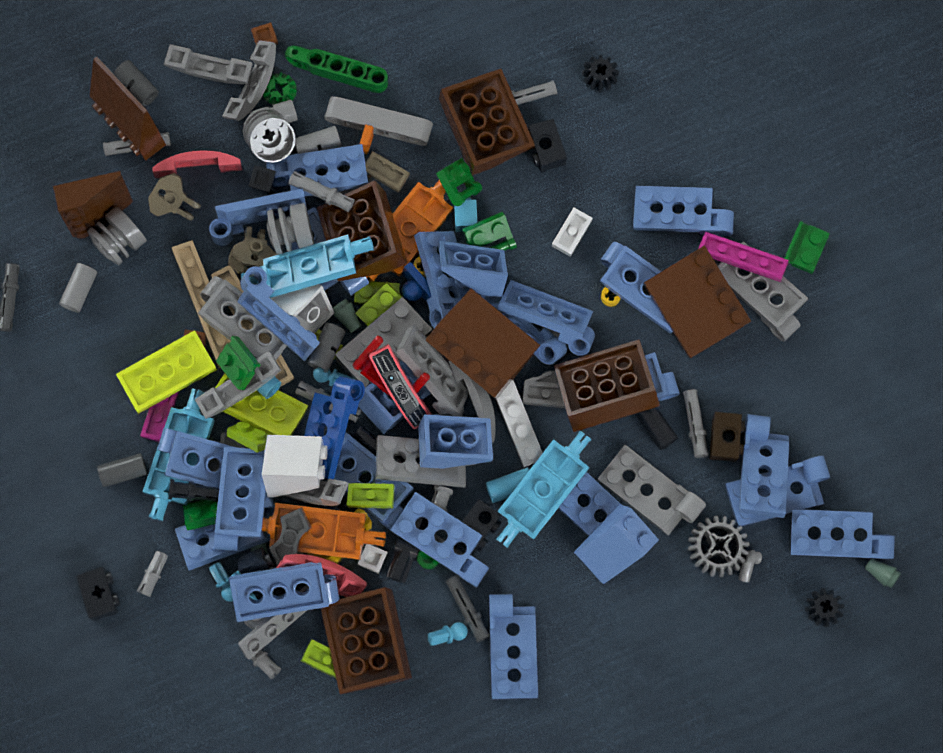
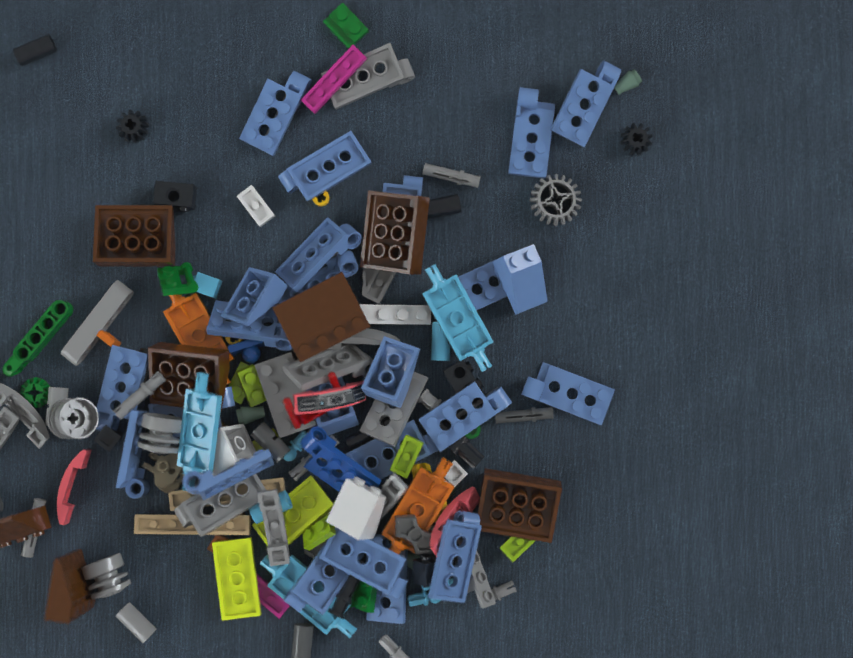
camera: 60 degrees left, 10 degrees up
(172, 199) = (95, 519): dark tan hinge -> none
(238, 363) = (255, 520): green plate -> none
(318, 140) = (94, 379): light grey pin -> none
(386, 172) = (143, 334): dark tan plate -> none
(457, 631) = (538, 430): medium azure axle -> none
(489, 231) = (228, 271): green plate -> none
(549, 89) = (127, 173): light grey pin -> none
(683, 503) = (508, 213): light grey hinge -> none
(697, 302) = (355, 131): reddish brown slope -> none
(719, 448) = (478, 165): dark brown brick -> none
(747, 566) = (581, 185): light grey arm -> none
(756, 438) = (482, 133): medium blue hinge -> none

